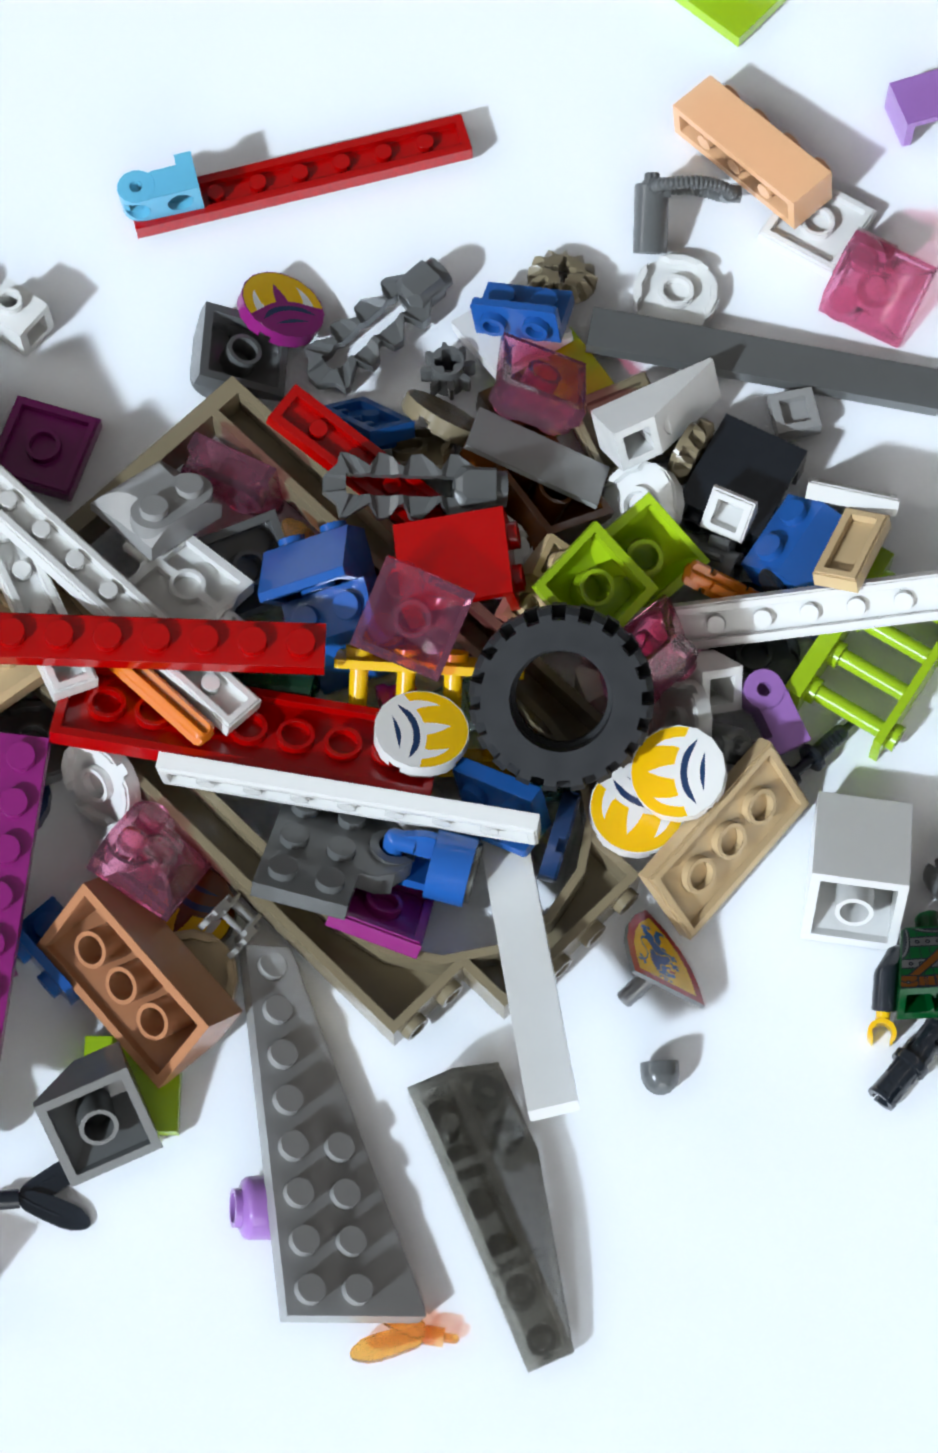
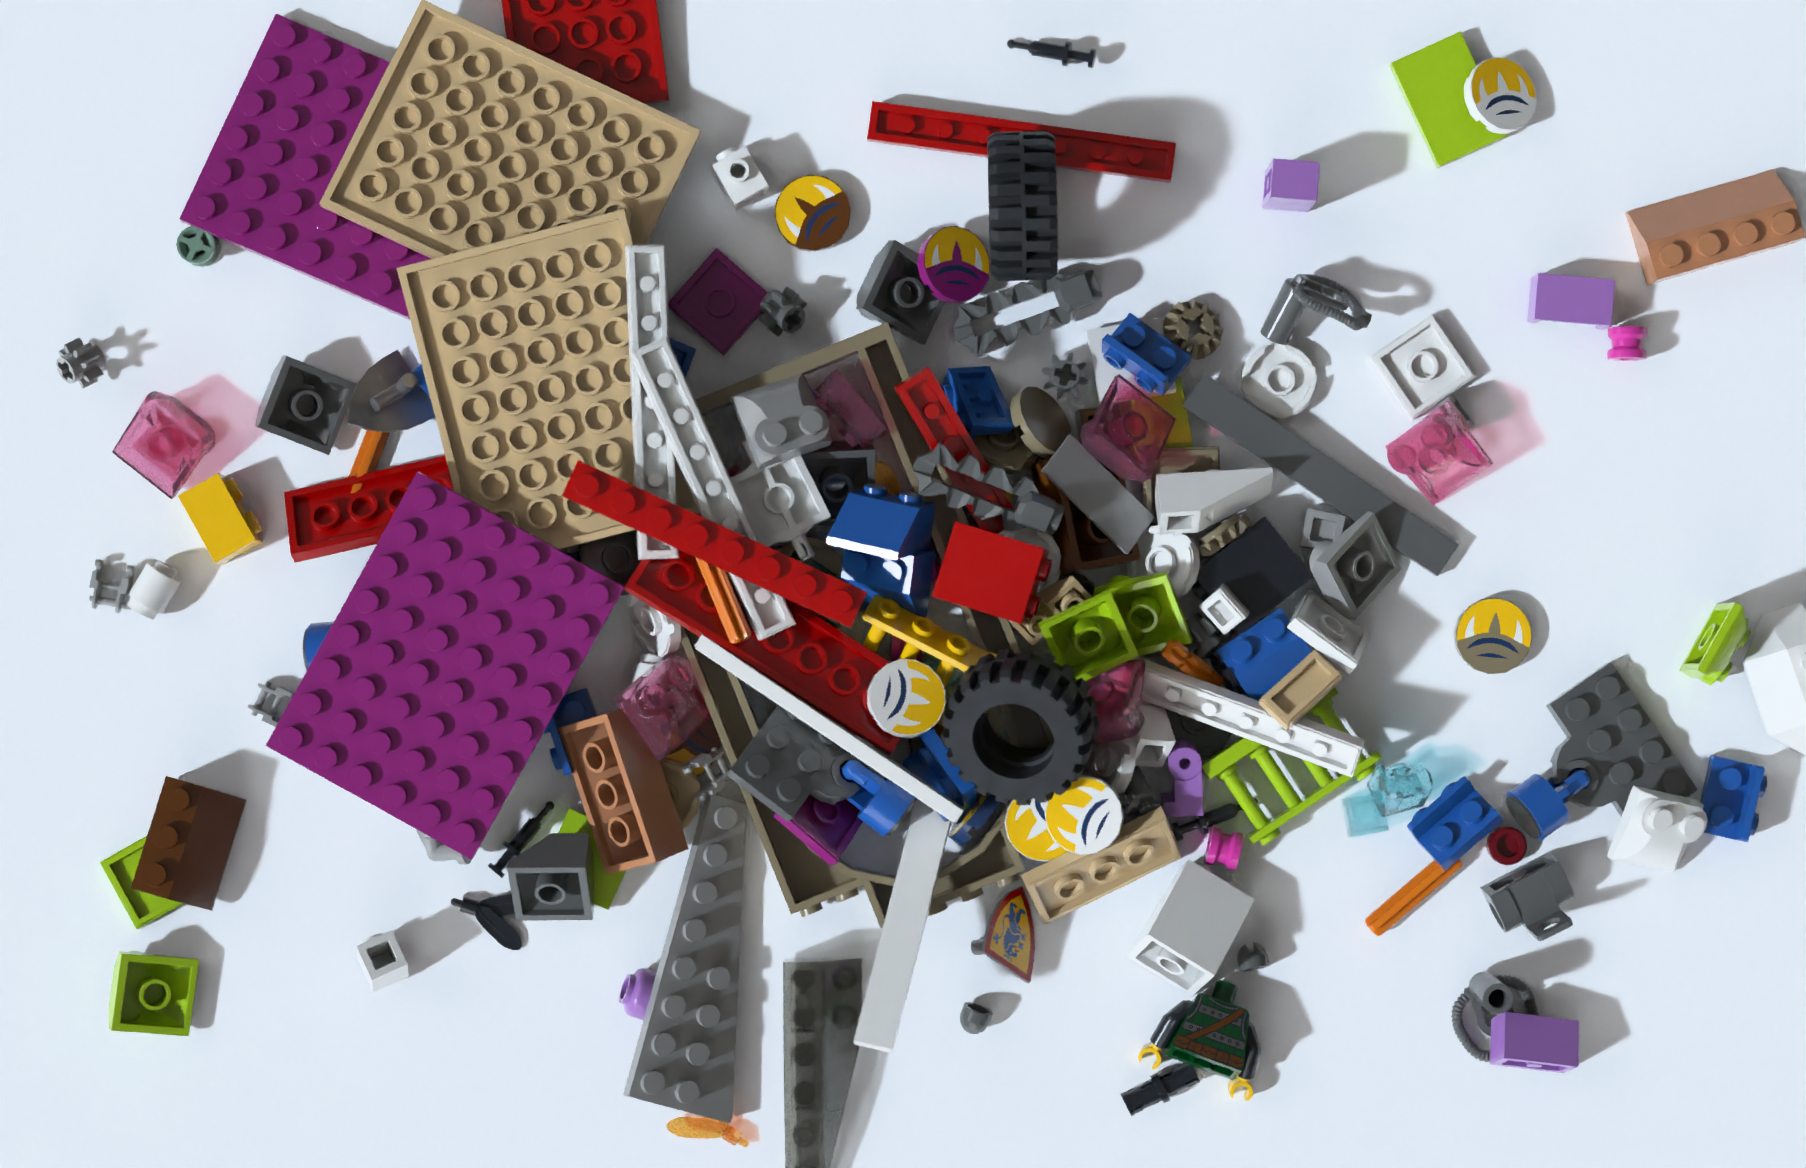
camera: 25 degrees right, 20 degrees up
(48, 1075) = (520, 840): none -> black piece
(108, 326) = (812, 213): none -> tile
(115, 423) = (782, 311): none -> dark grey gear
(161, 191) = (900, 120): medium azure leg -> none
(298, 85) = (1055, 51): none -> black piece
(326, 205) = (1022, 205): none -> black tyre
(412, 618) = (933, 614): clear pink slope -> none
(597, 99) = (1290, 185): none -> medium lavender panel
(753, 151) = (1398, 284): light nougat brick -> none
(845, 427) = (1354, 566): none -> light grey slope
(851, 770) = (1223, 848): none -> dark pink wheel

